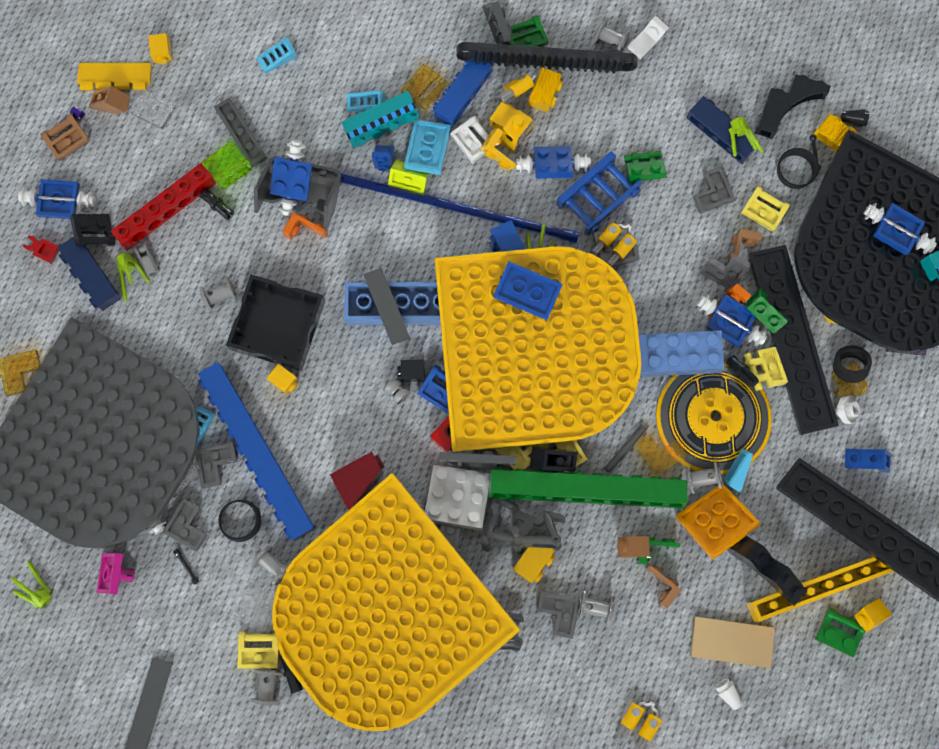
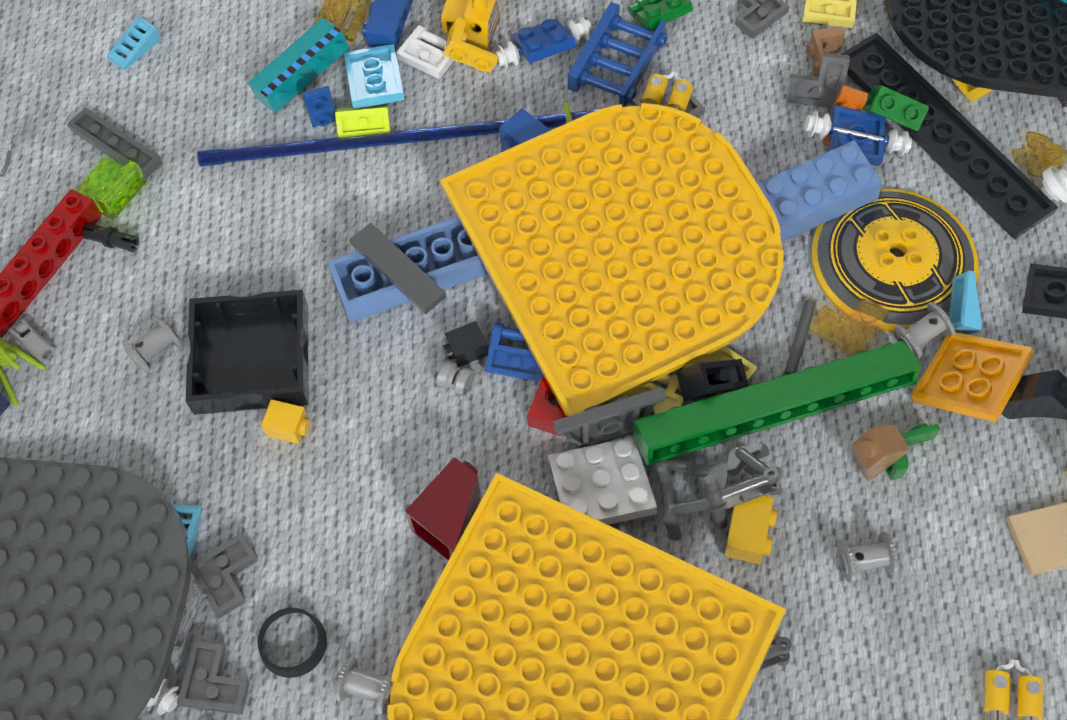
camera: 20 degrees left, 15 degrees down
(256, 451) = (285, 534): blue brick -> none
(291, 178) = (204, 162): blue plate -> none
(293, 227) = (232, 217): orange bracket -> none
(323, 189) = (217, 171): dark grey windscreen -> none
(366, 95) = (277, 45): medium azure slope -> none
(527, 291) = (583, 172): blue plate -> none
(565, 610) = (826, 579): flat silver plate -> none
(666, 596) = (959, 491): medium nougat bracket -> none
(742, 371) = (905, 187): black axle -> none
(770, 365) = (934, 171): light yellow plate -> none
(852, 352) = (1033, 119): black tyre -> none

